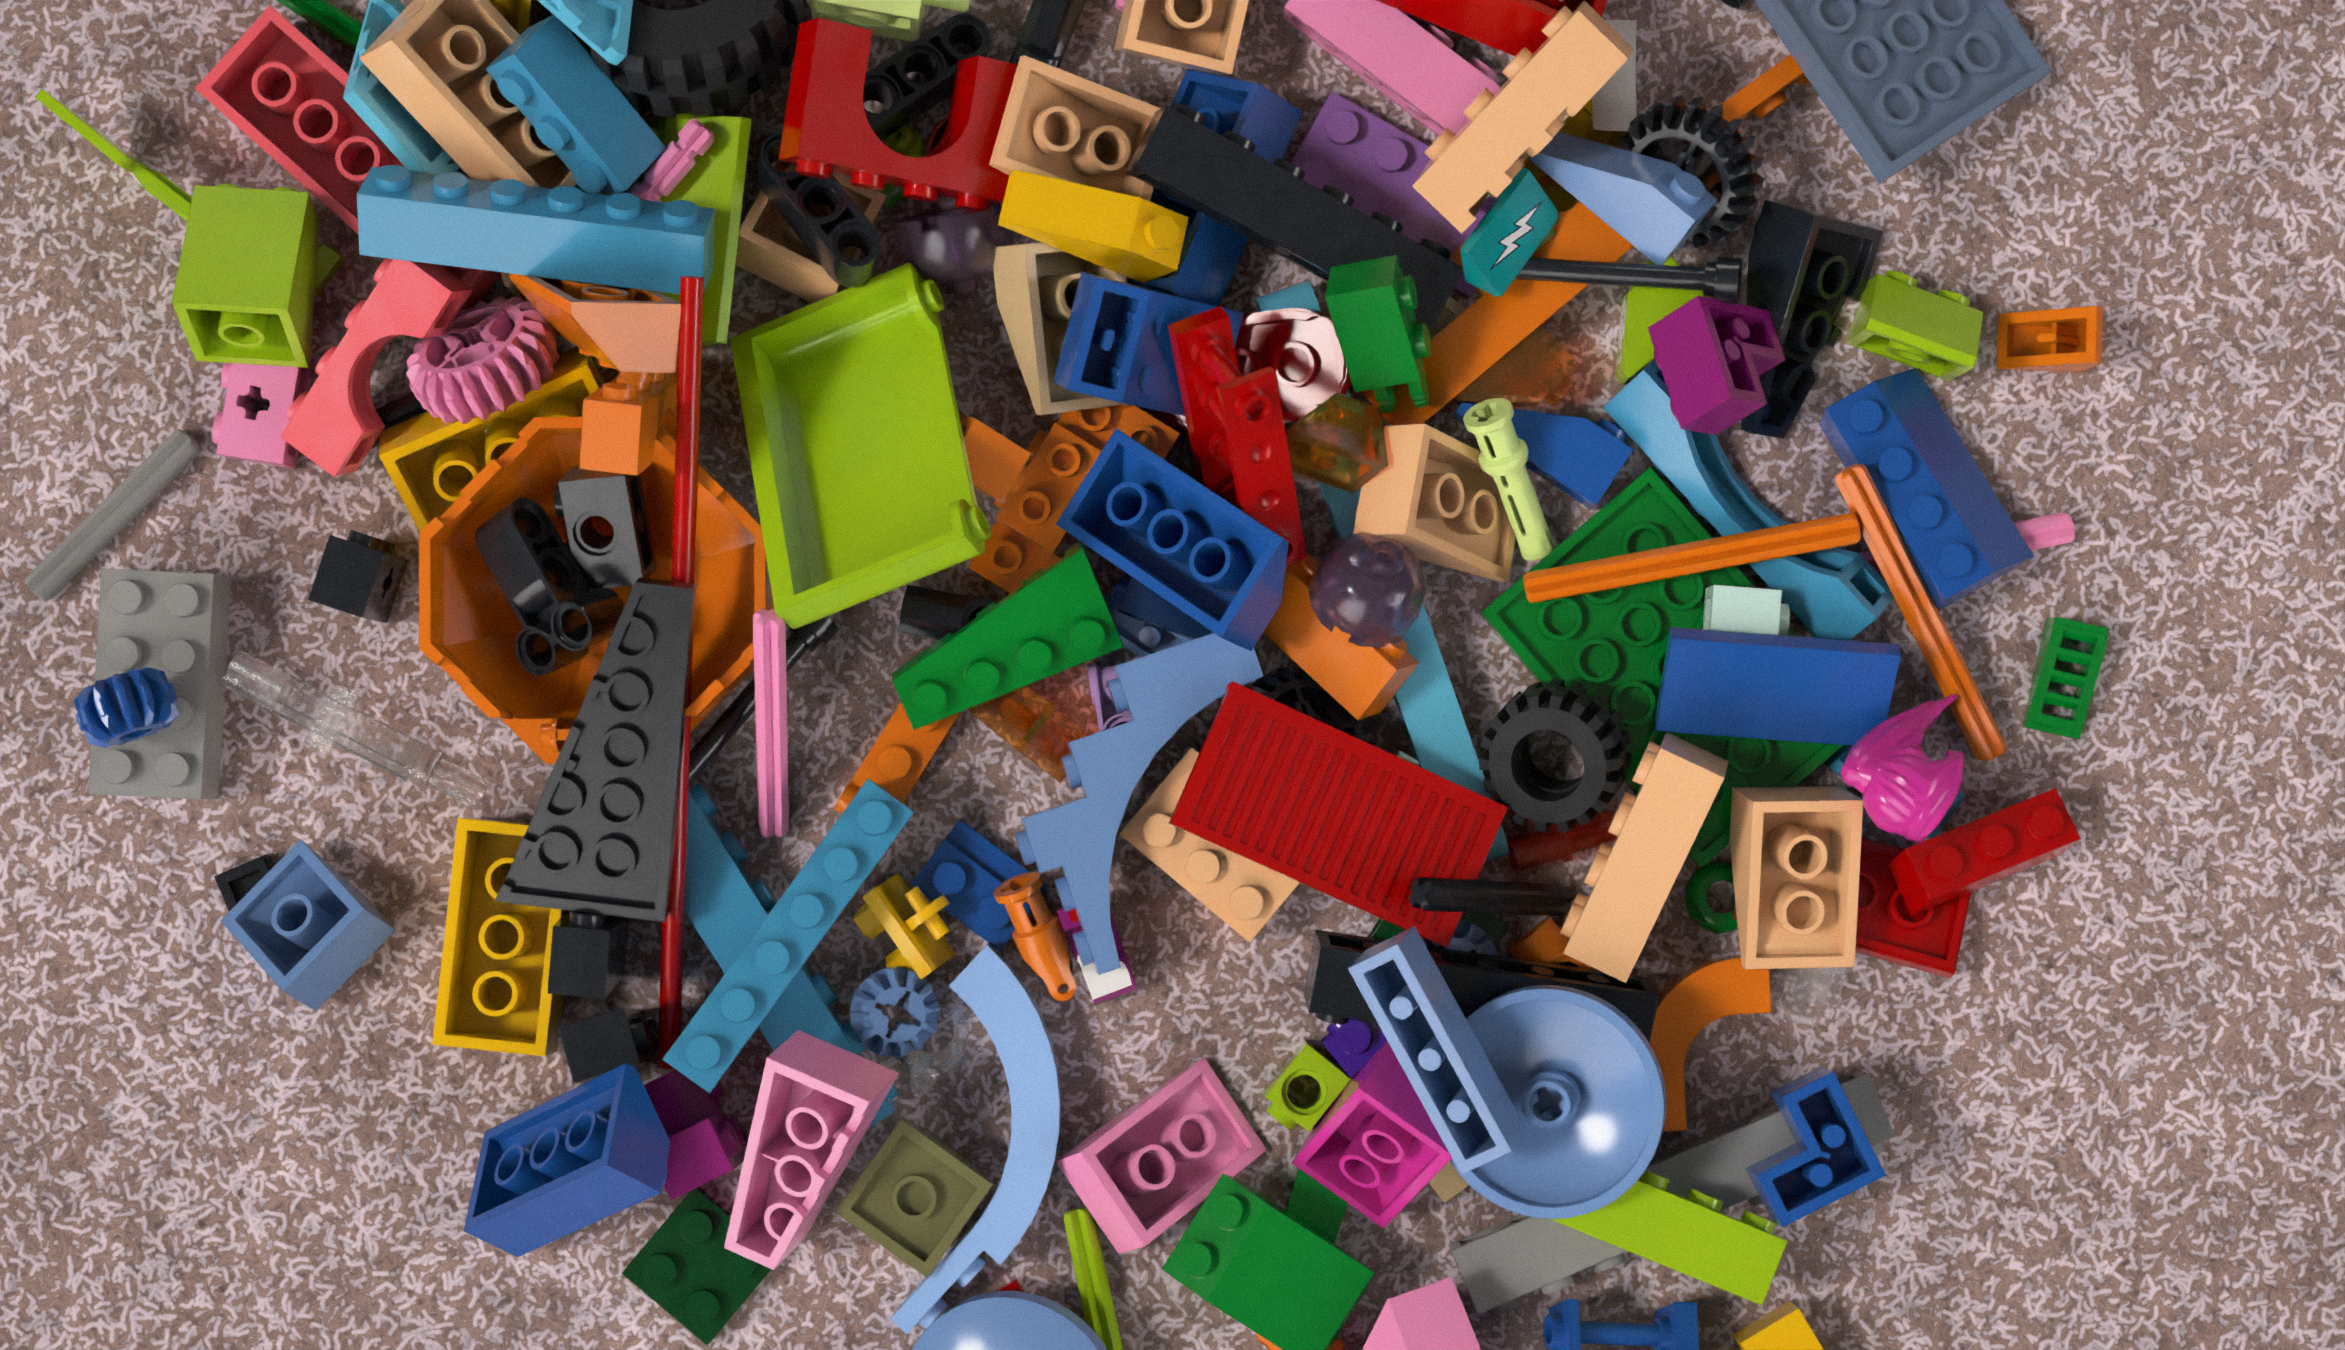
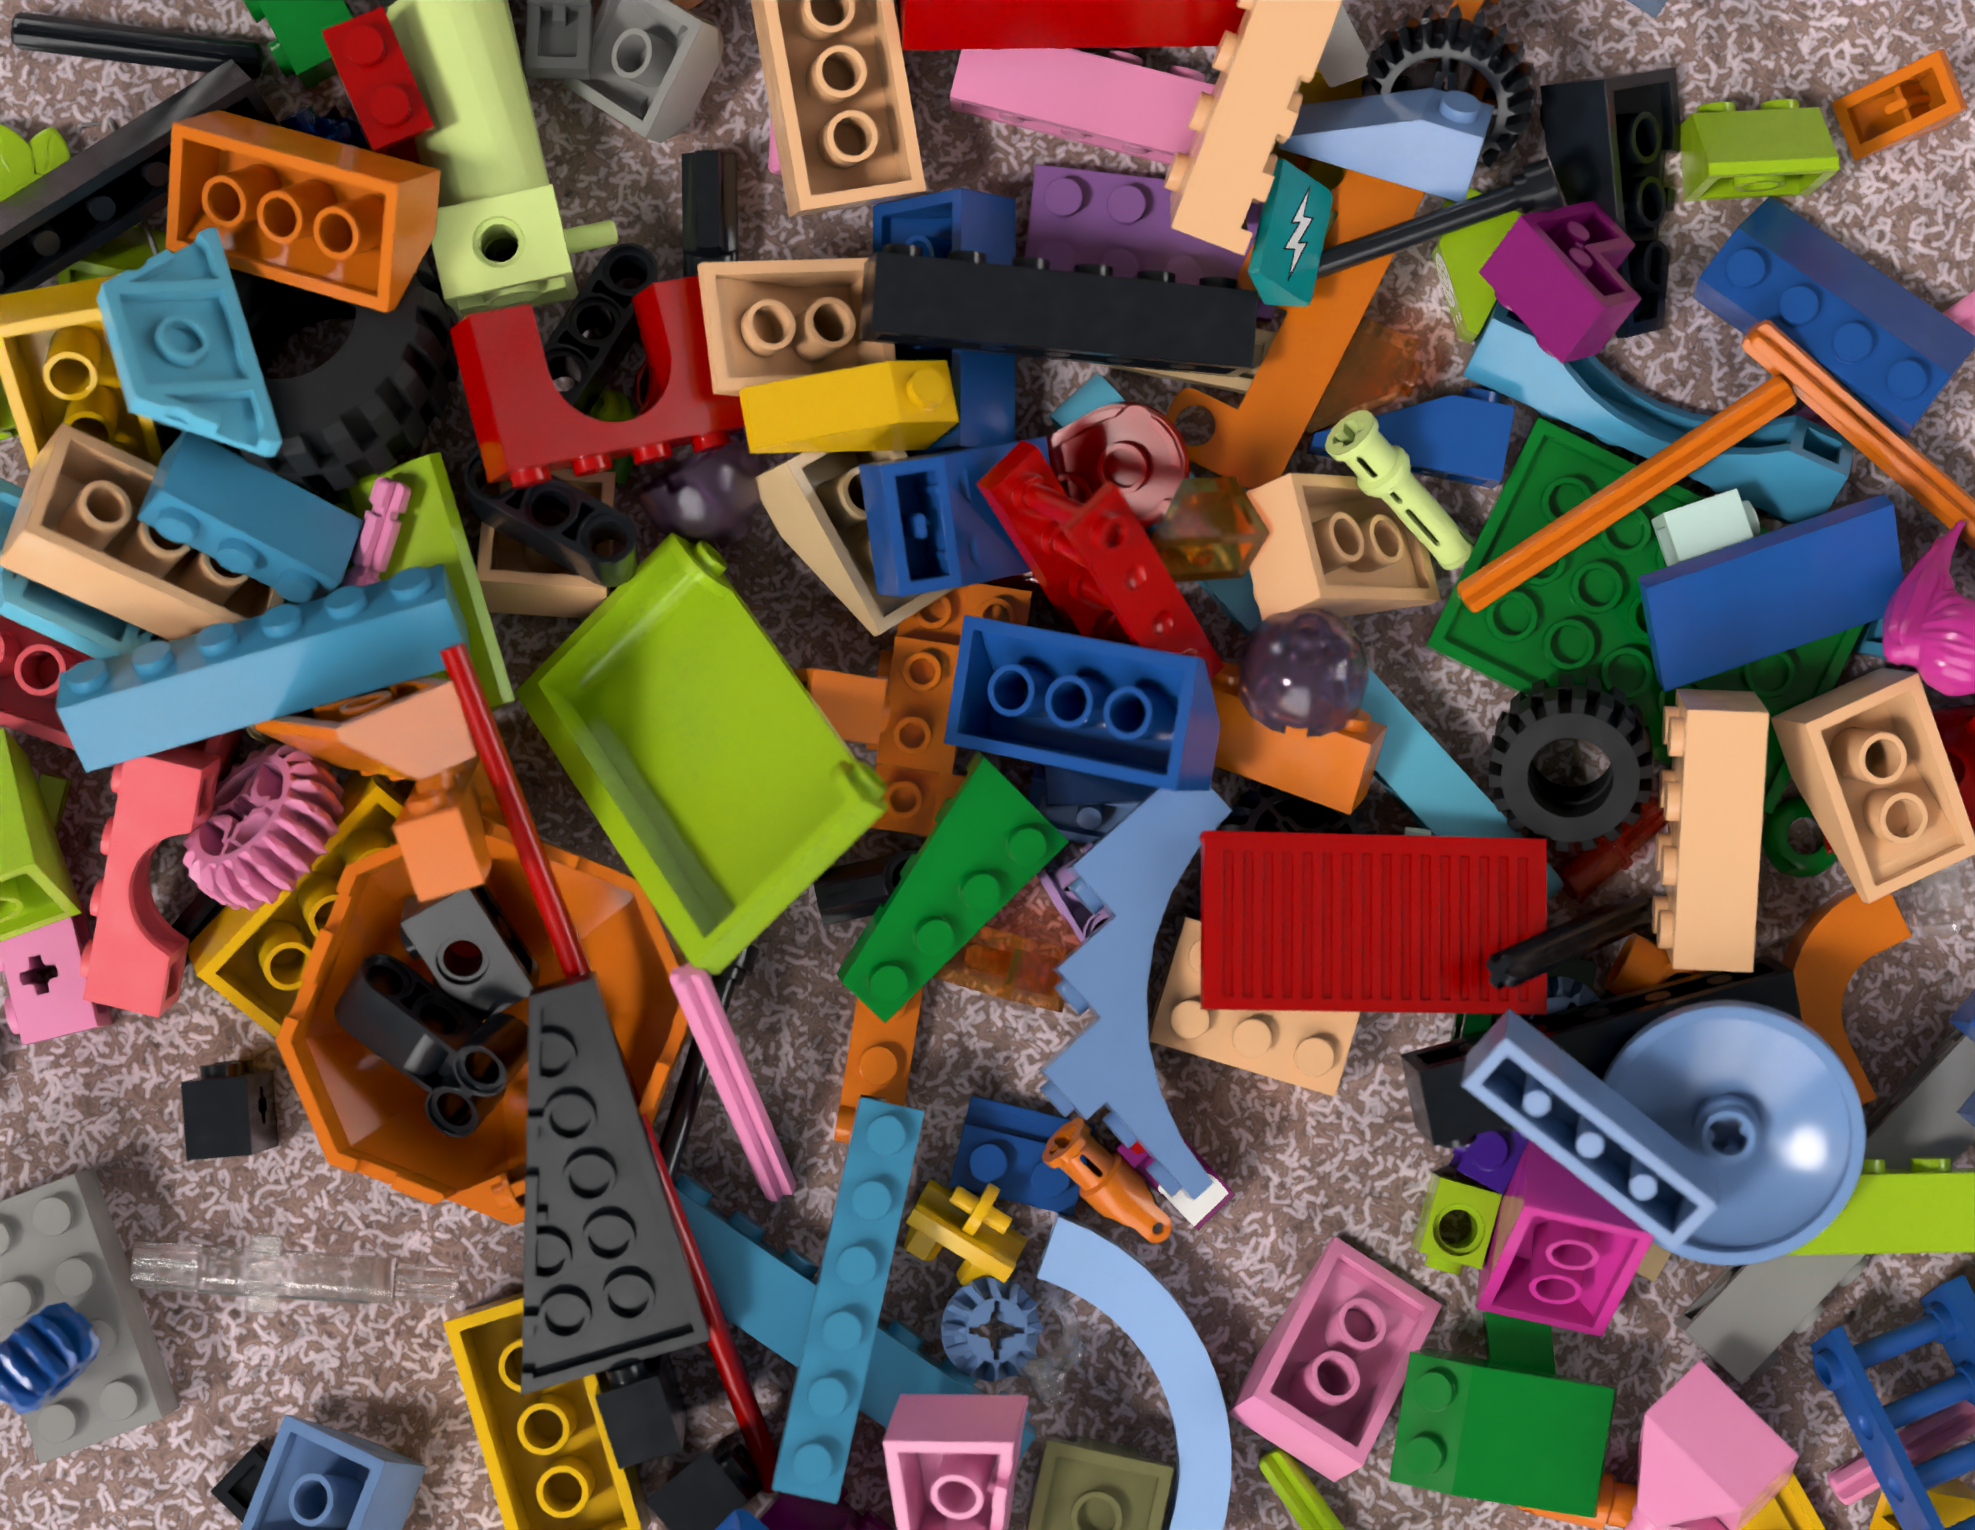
camera: 25 degrees left, 0 degrees up
(1379, 329) = (1198, 393): green hinge -> none

